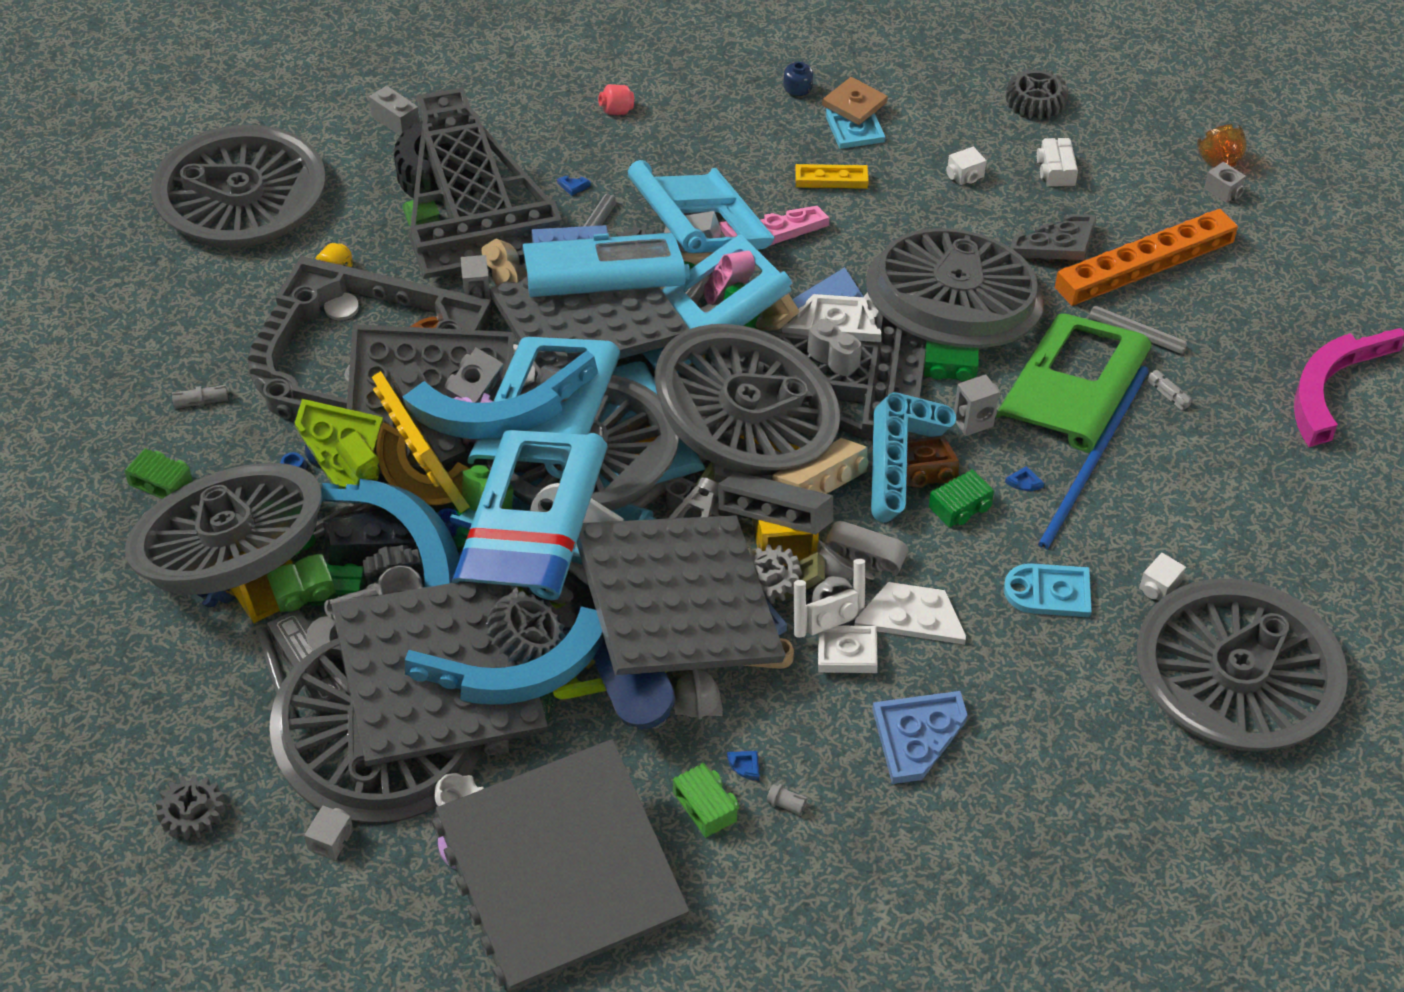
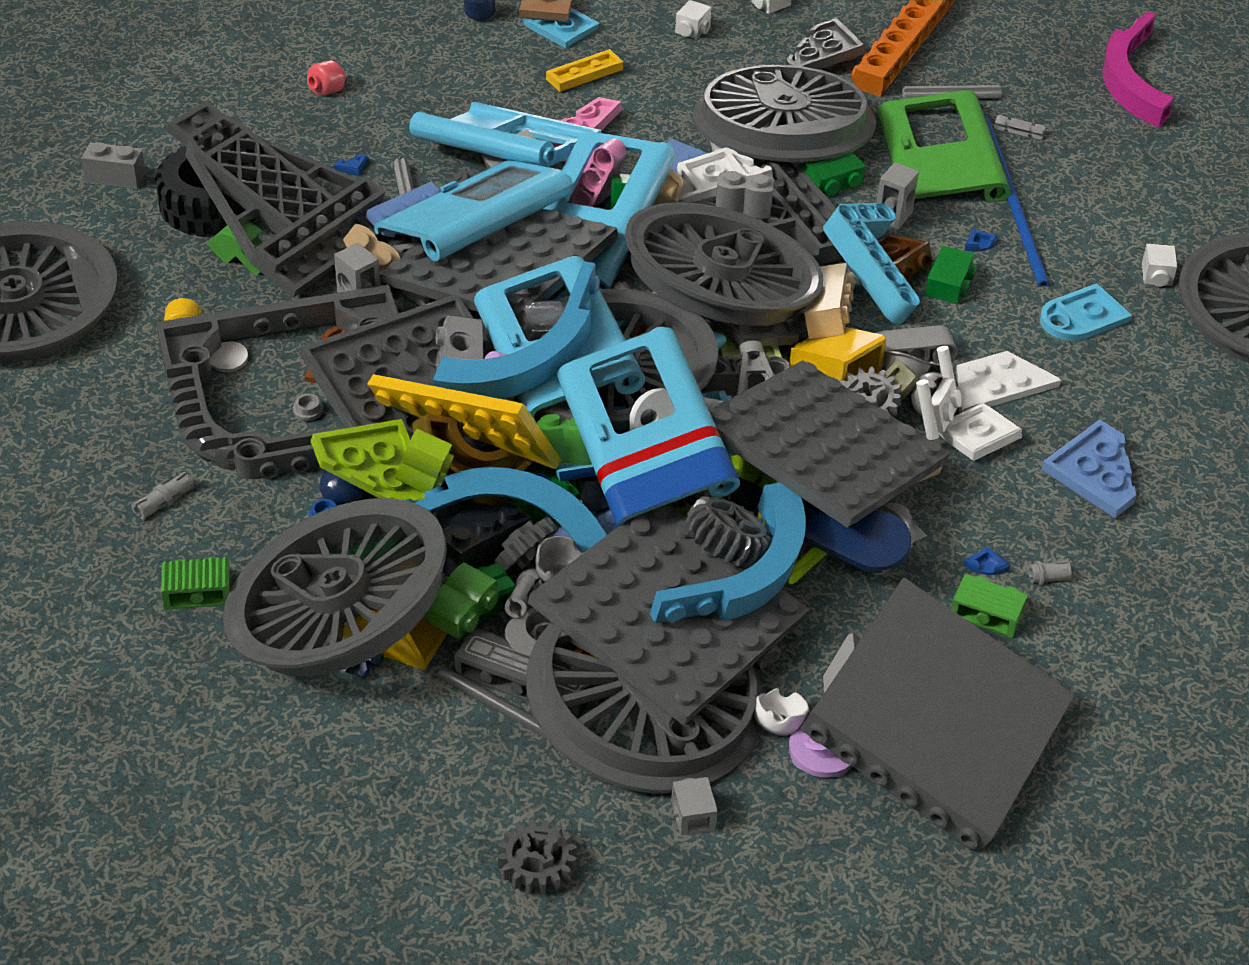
camera: 35 degrees left, 5 degrees down
(776, 502) = (829, 332): dark grey brick -> none

